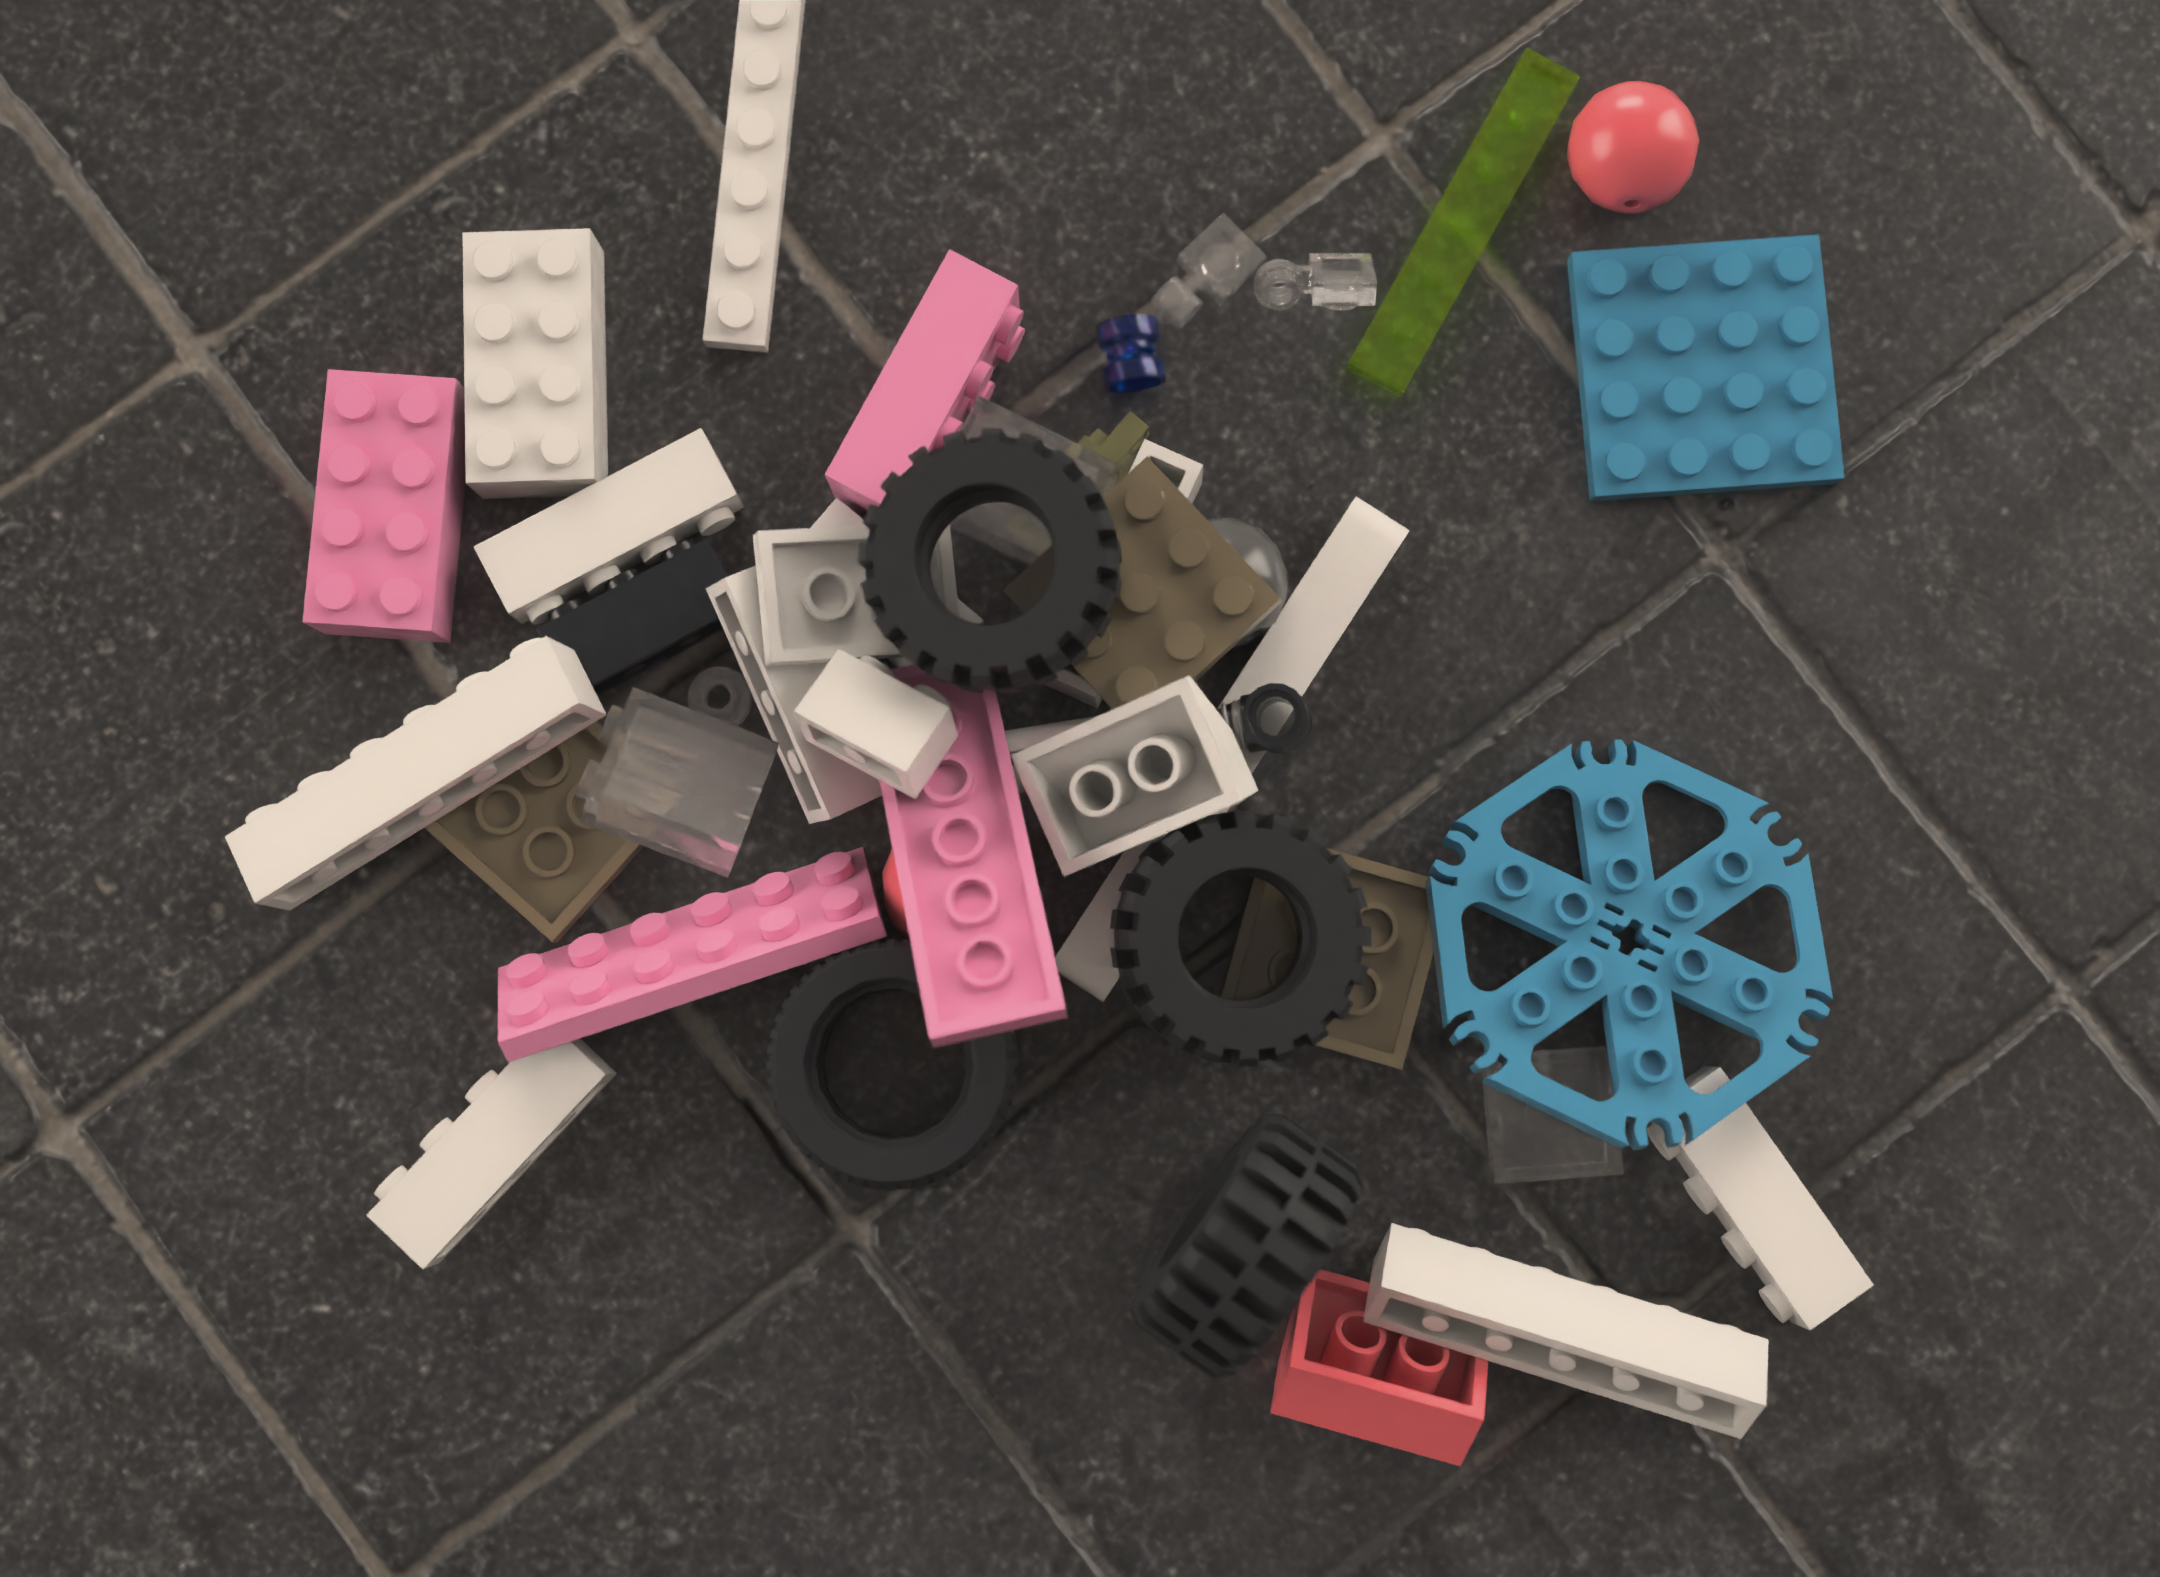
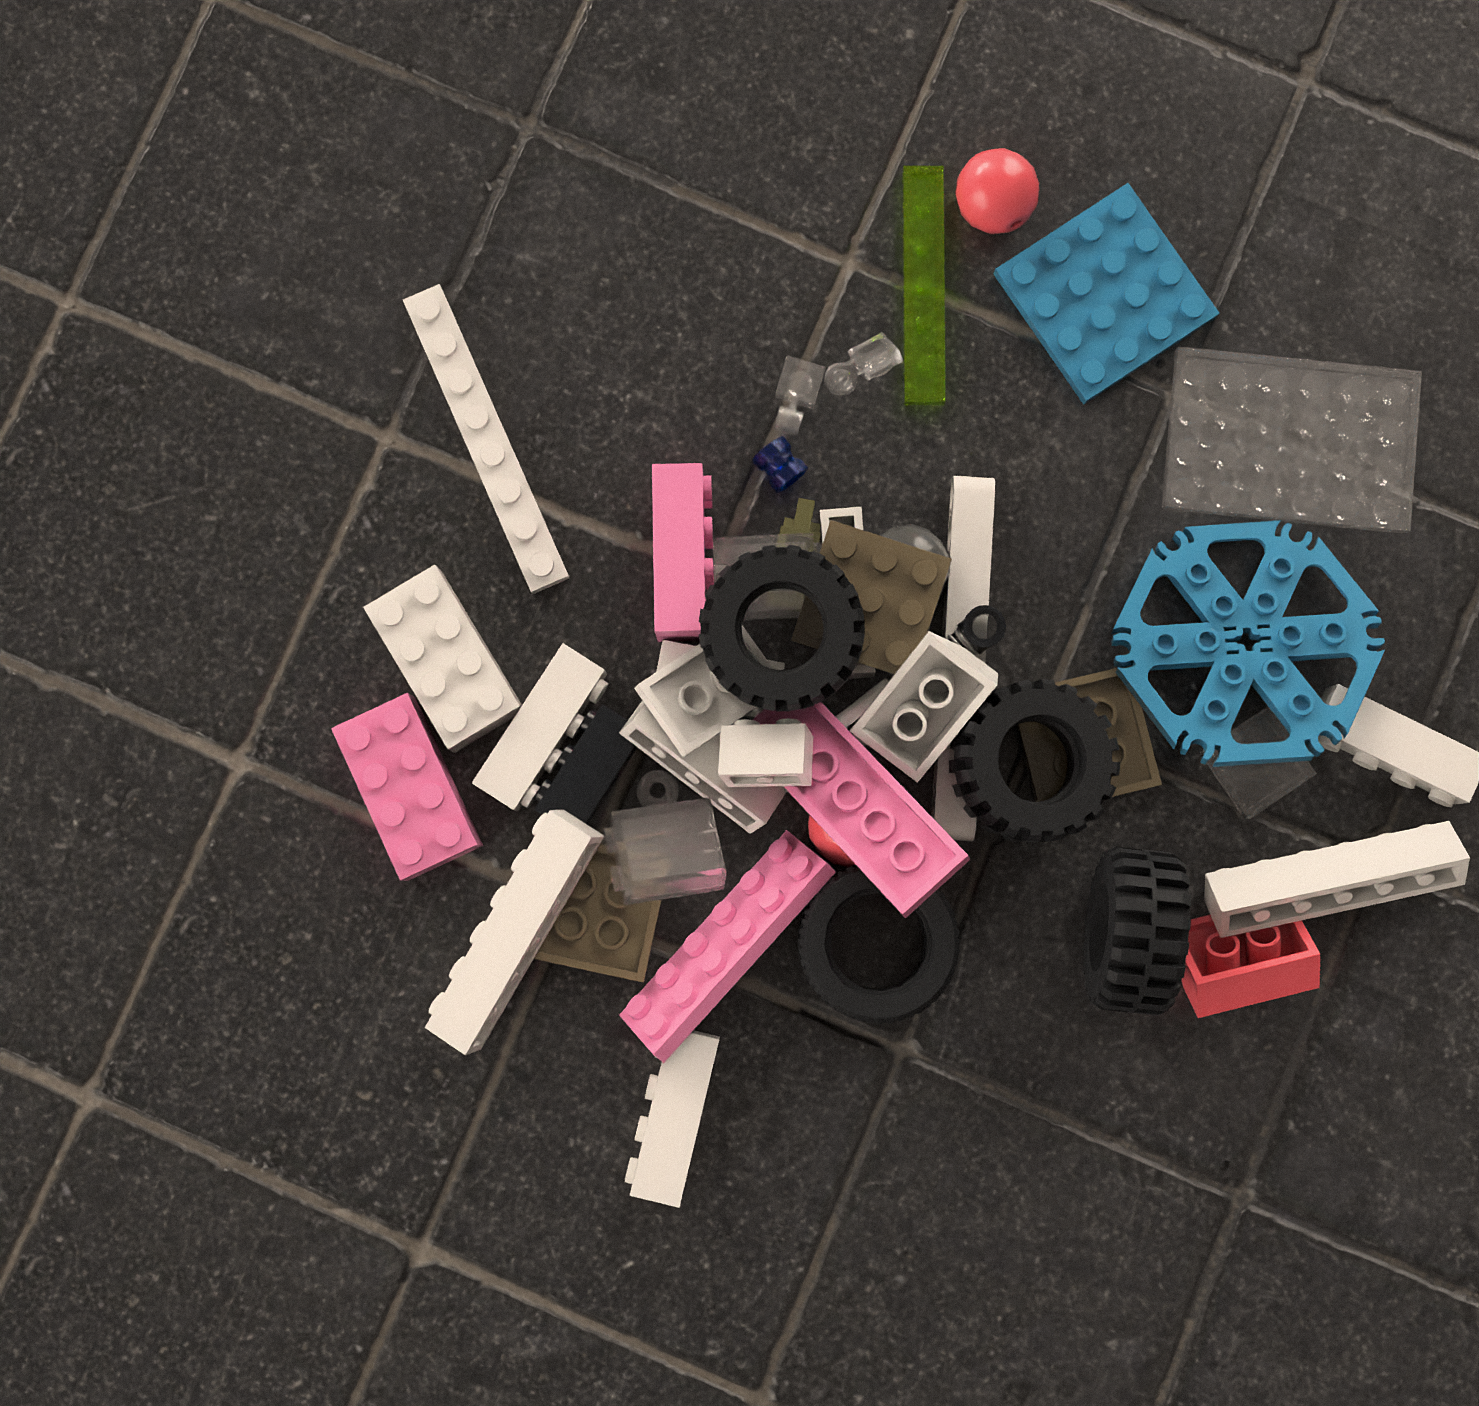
camera: 25 degrees left, 0 degrees up
(1847, 704) = (1292, 440): none -> clear plate

